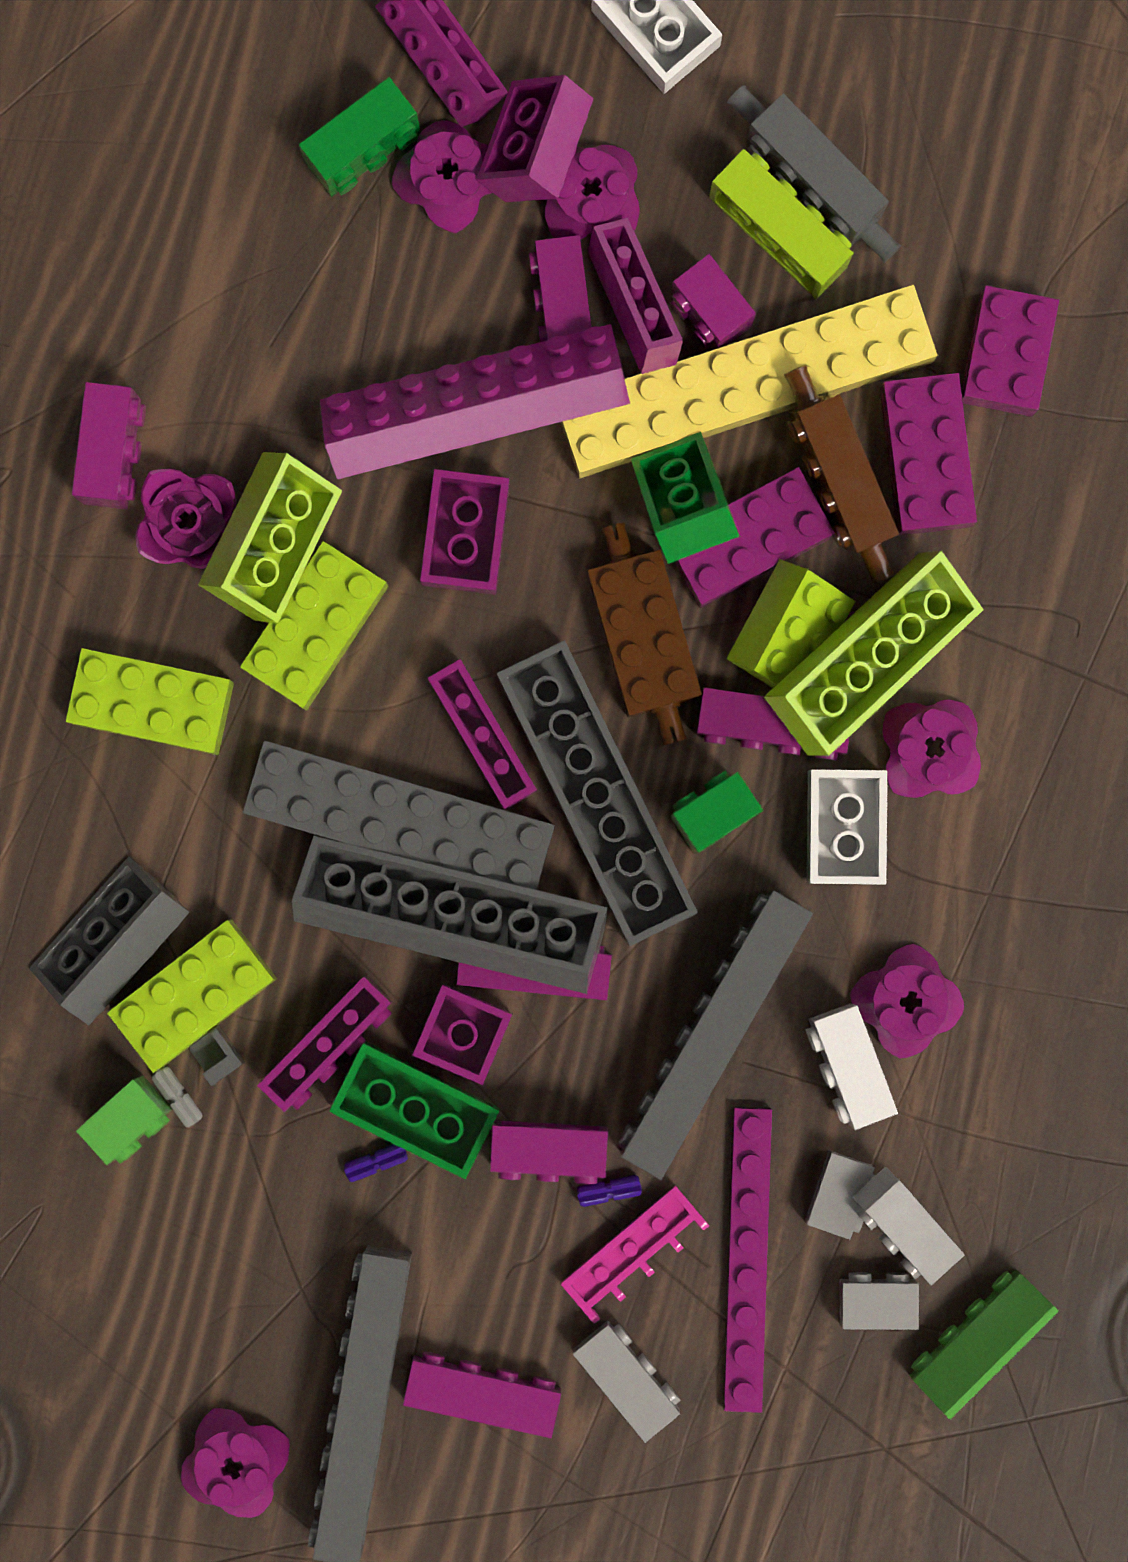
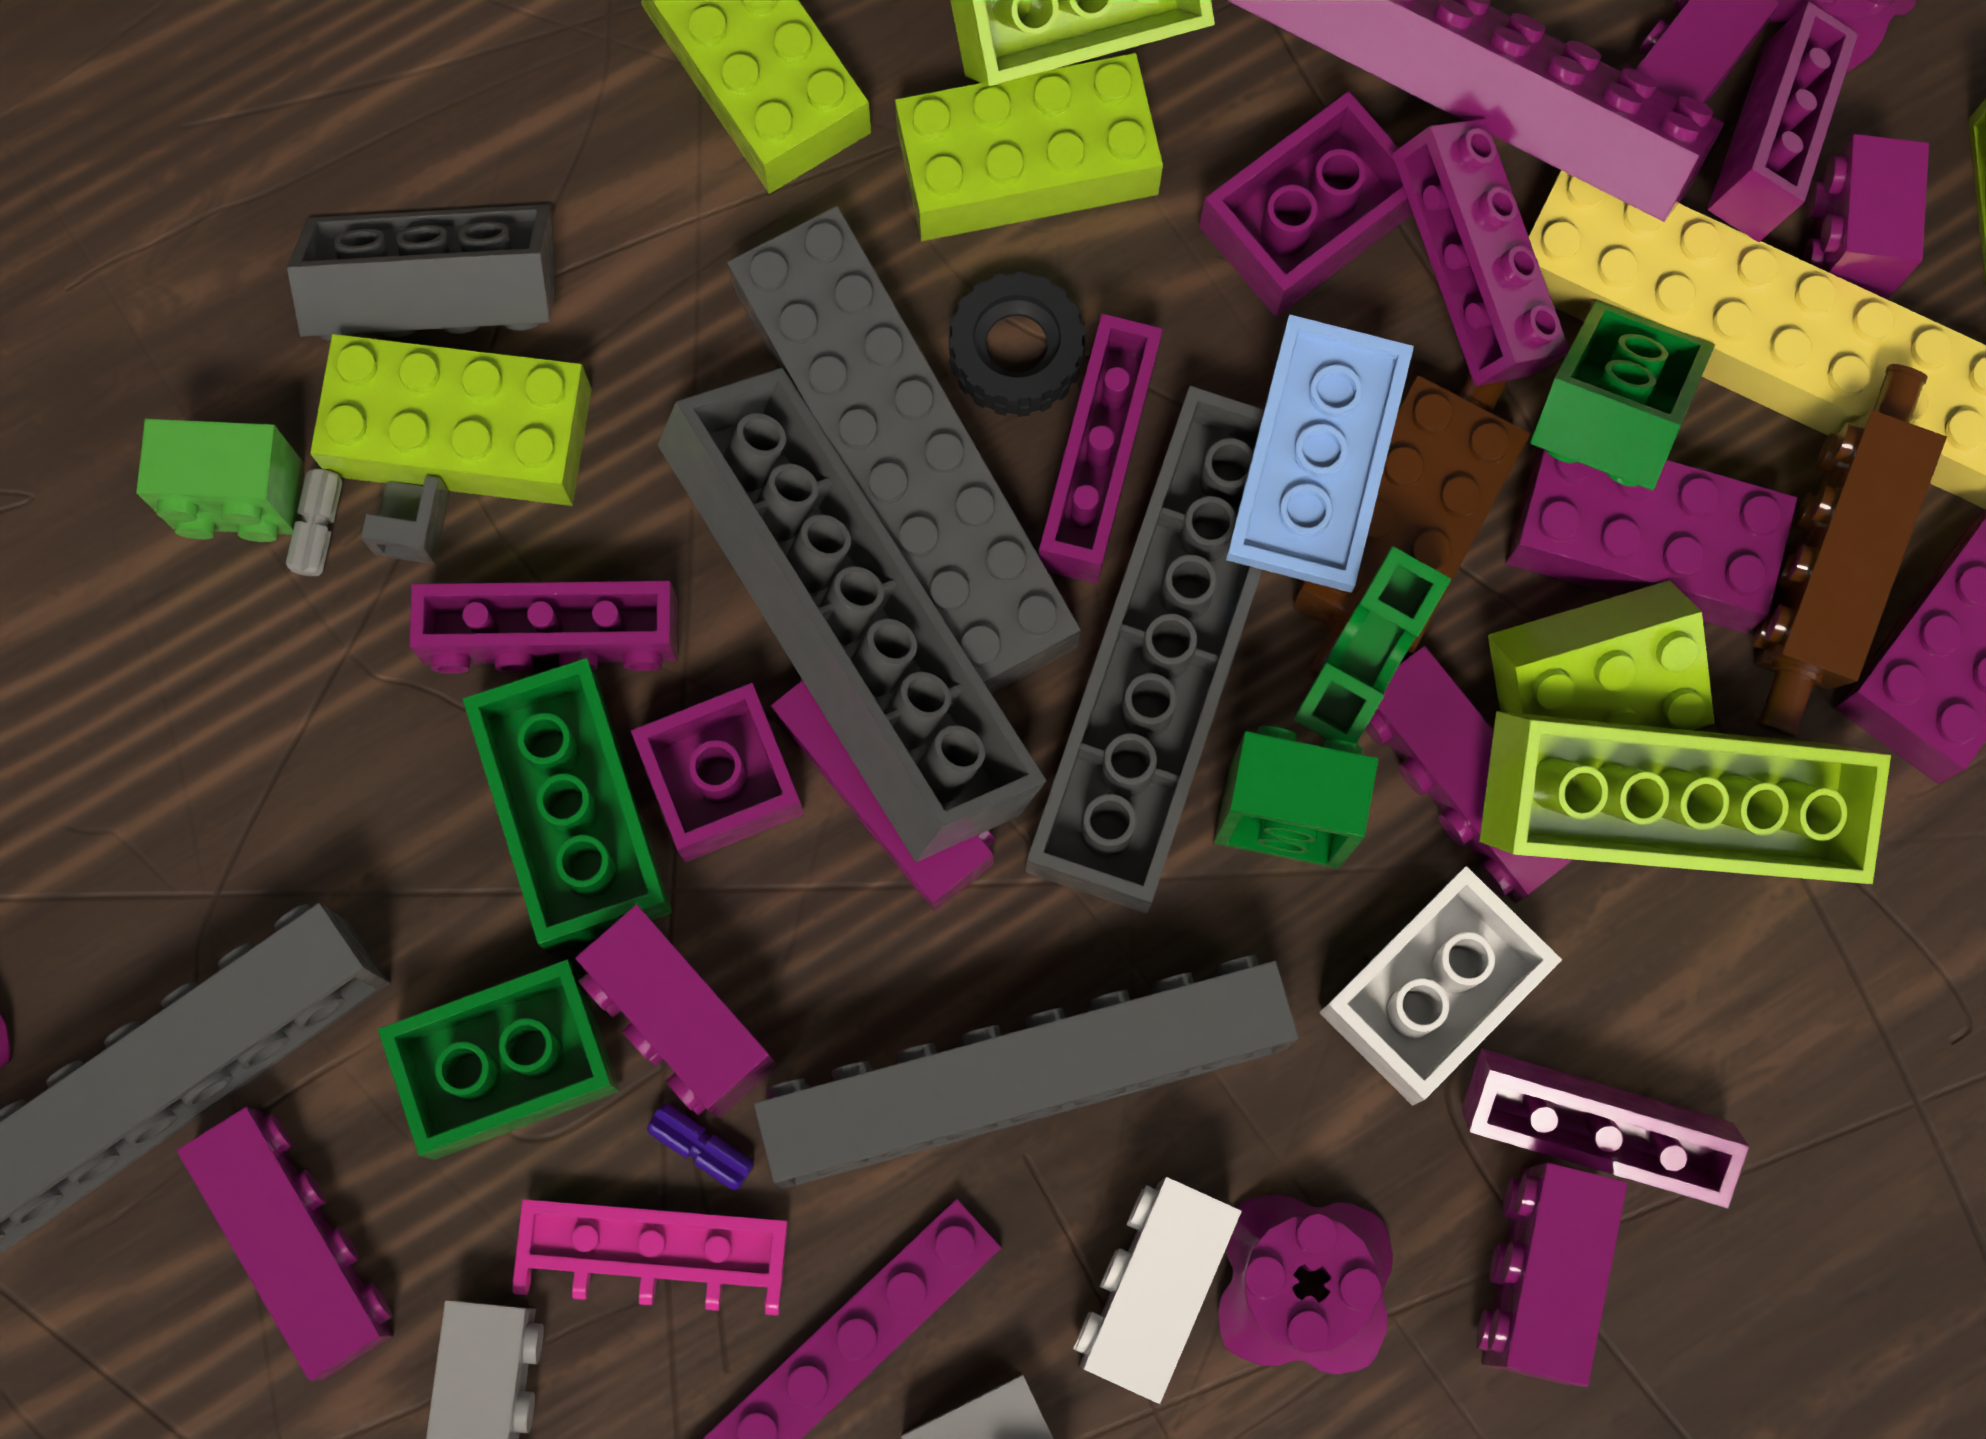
camera: 45 degrees right, 10 degrees down
(368, 1164) = (450, 824): dark purple piece -> none
(392, 691) = (1008, 297): none -> black tyre
(495, 1240) = (498, 1060): none -> green brick
(564, 492) = (1480, 252): none -> magenta brick
(582, 652) = (1320, 453): none -> light blue plate
(685, 718) = (1371, 647): none -> green arch
(910, 769) = (1591, 1008): magenta brick -> none
(967, 820) = (1604, 1128): none -> magenta brick
(1002, 903) = (1552, 1273): none -> magenta brick

